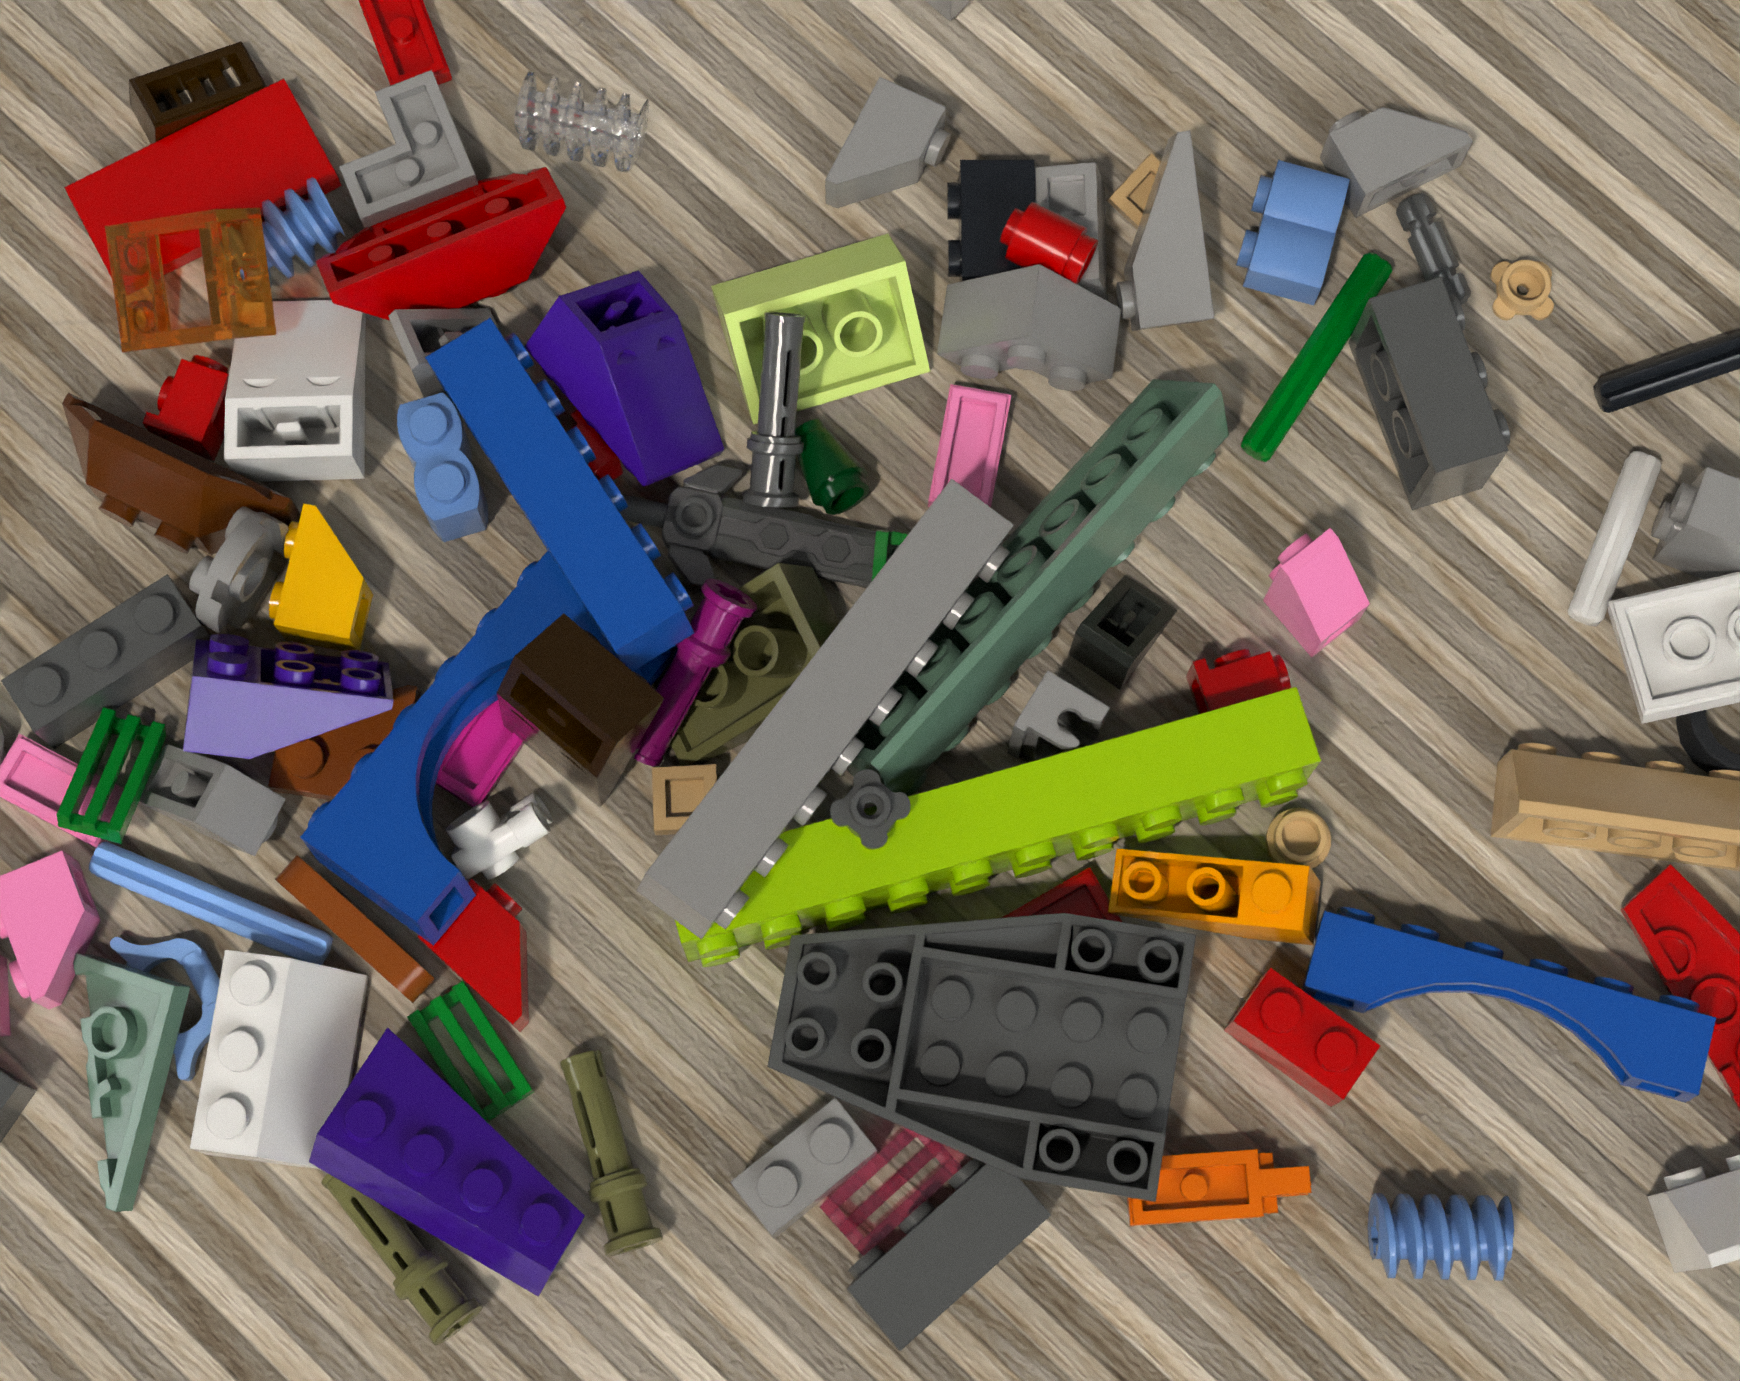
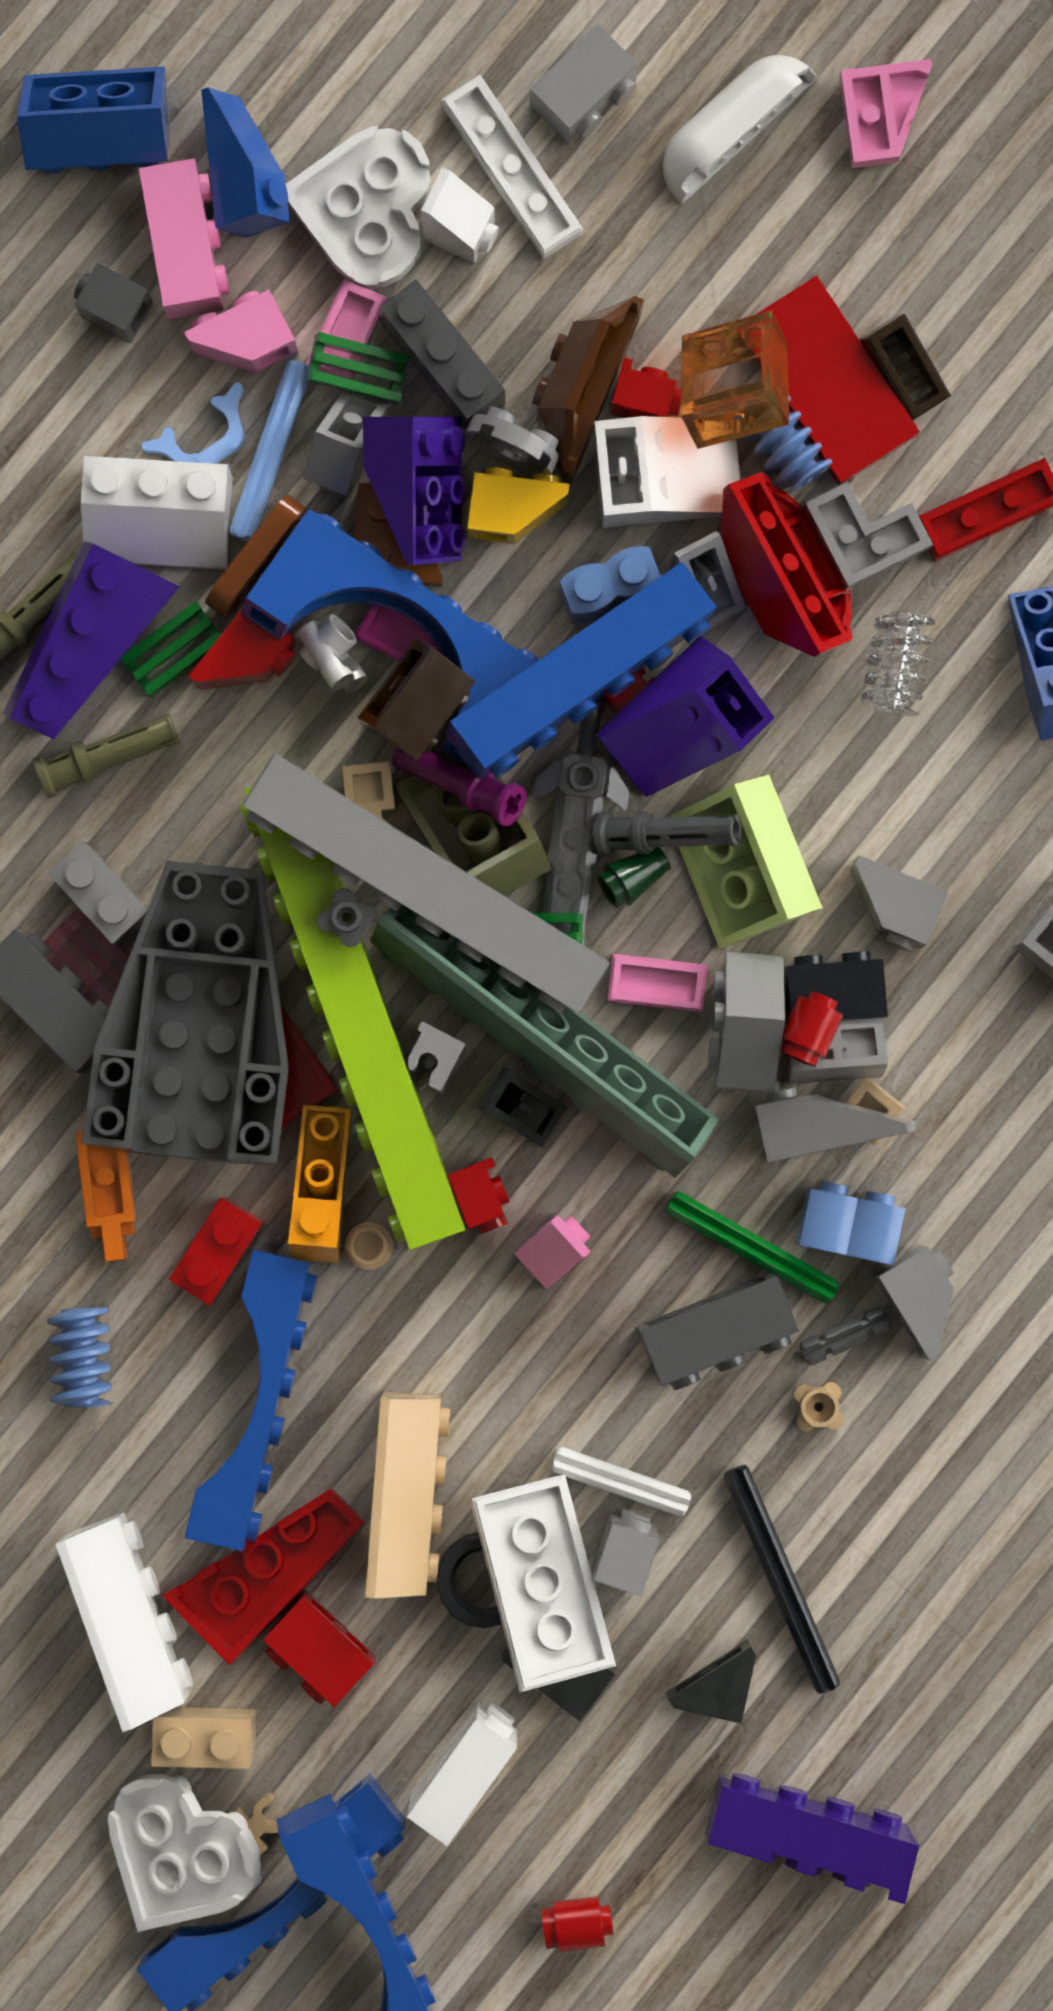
camera: 85 degrees right, 10 degrees up
(129, 1058) = (151, 406): sand green wing -> none

